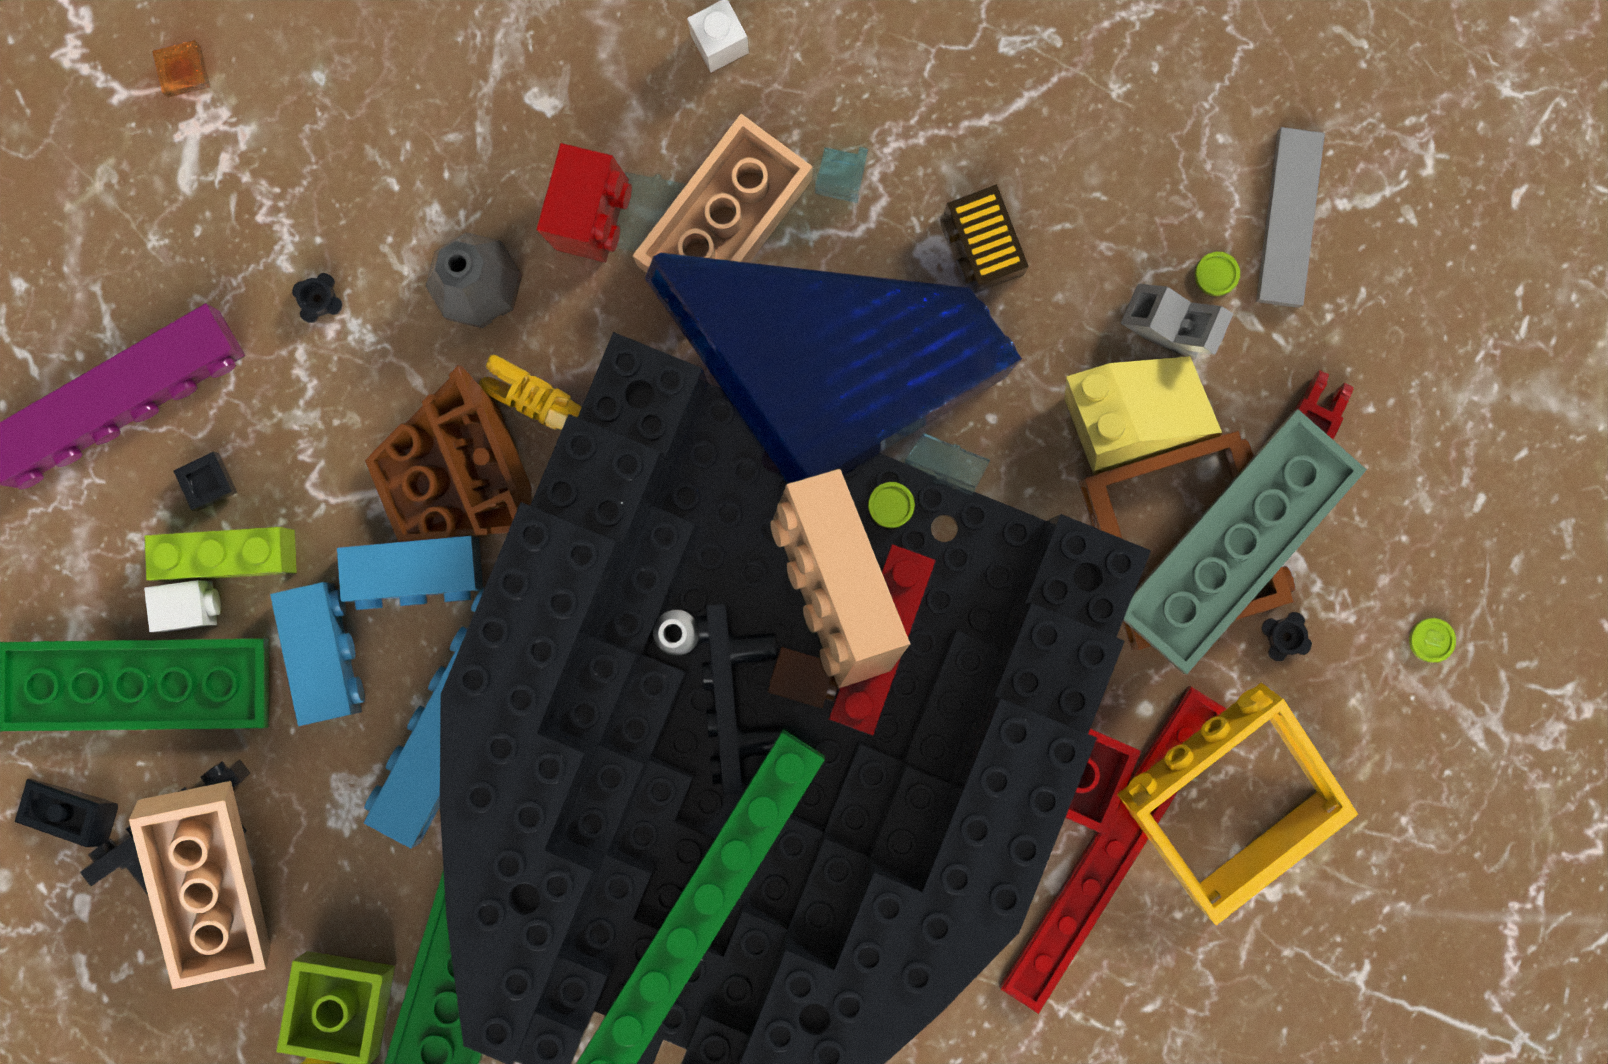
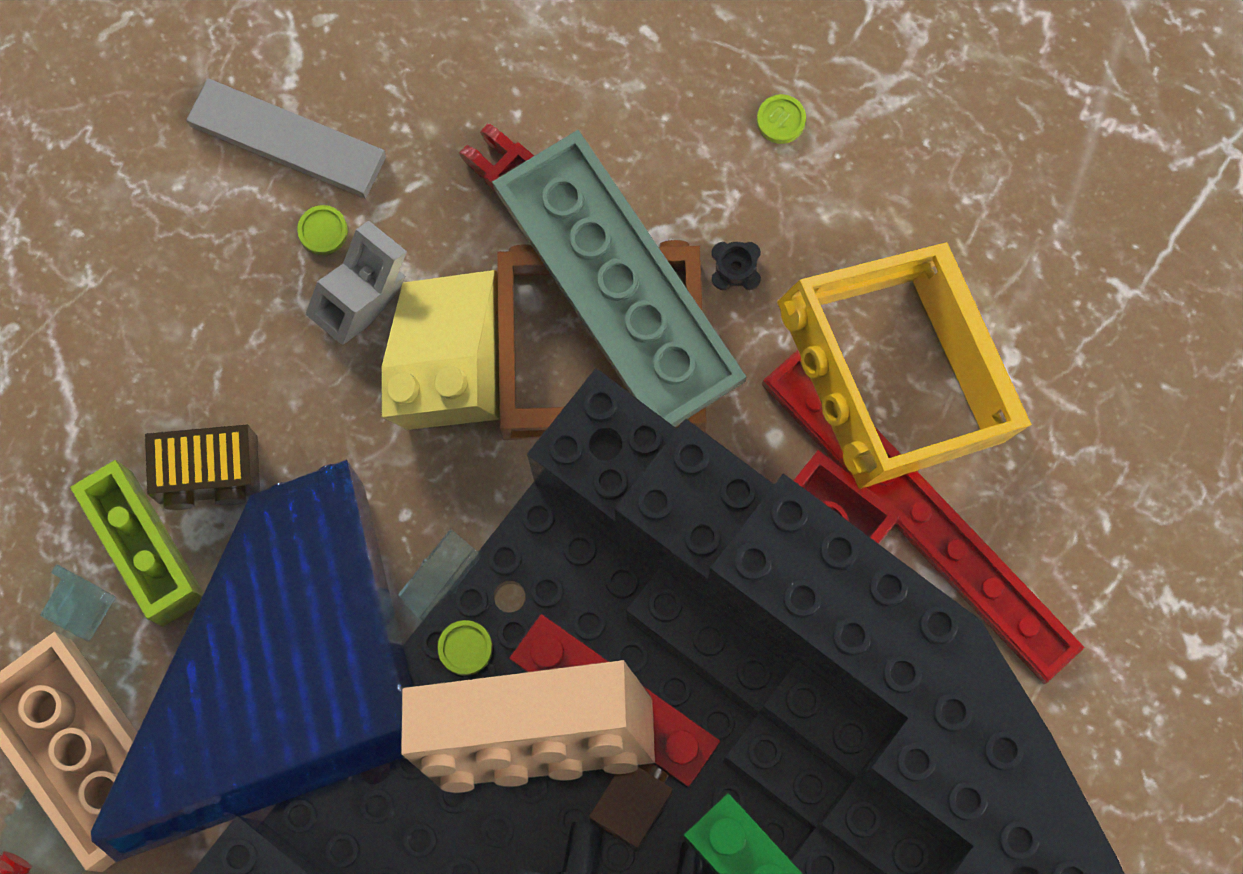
camera: 75 degrees left, 10 degrees down
(904, 208) = (138, 543): none -> lime brick

